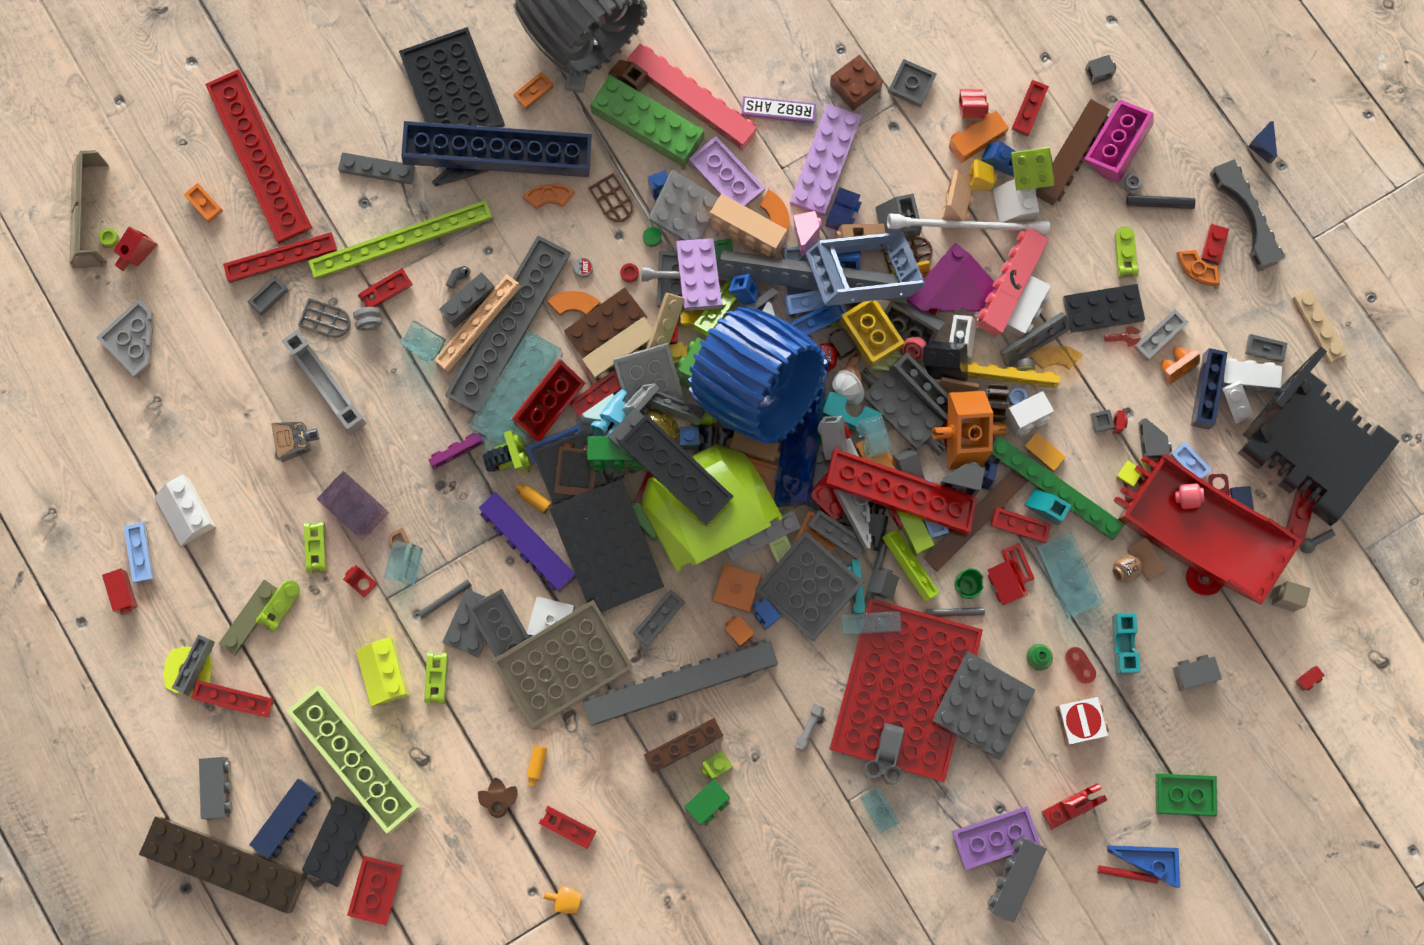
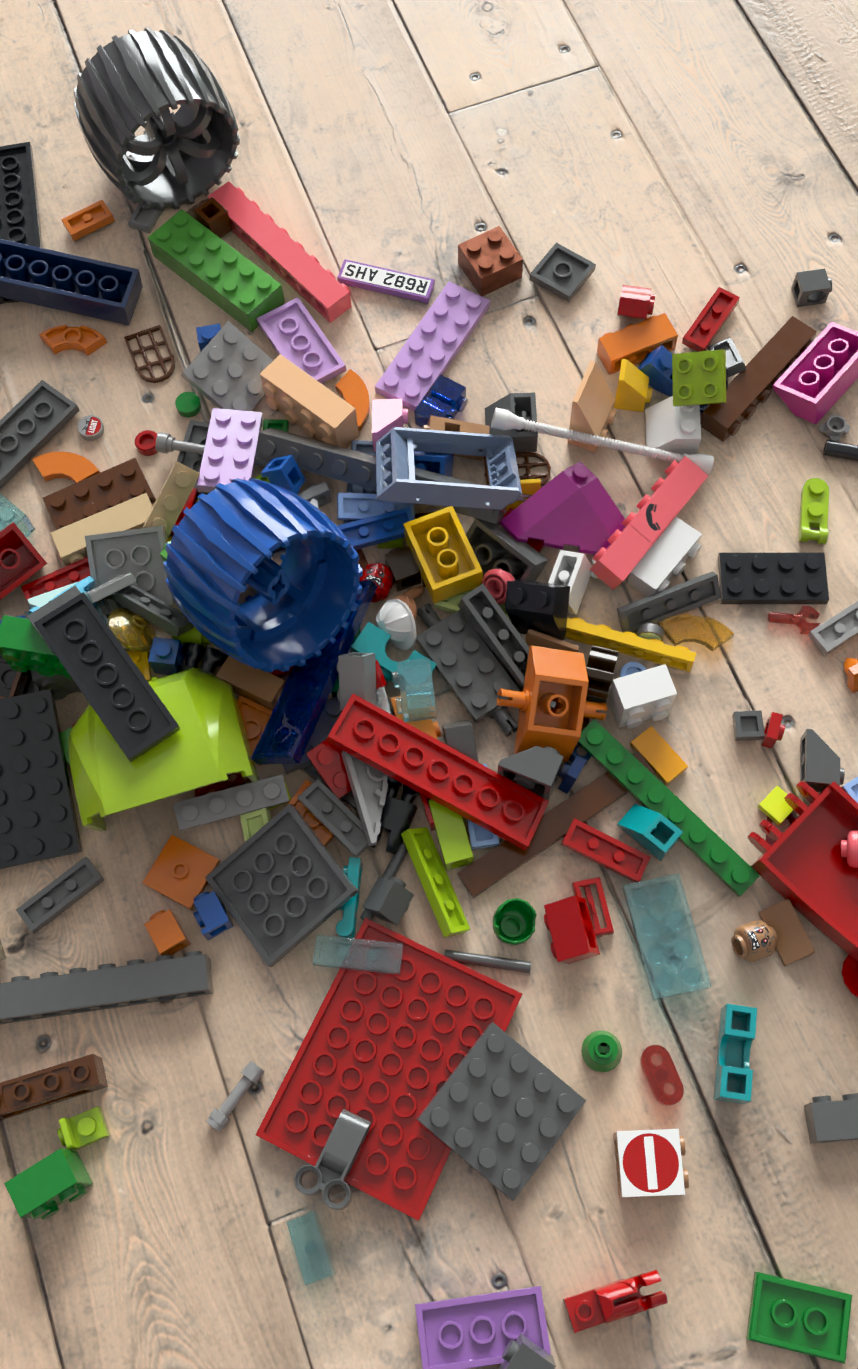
camera: 15 degrees right, 10 degrees down
(1046, 138) = (734, 361): none -> tile

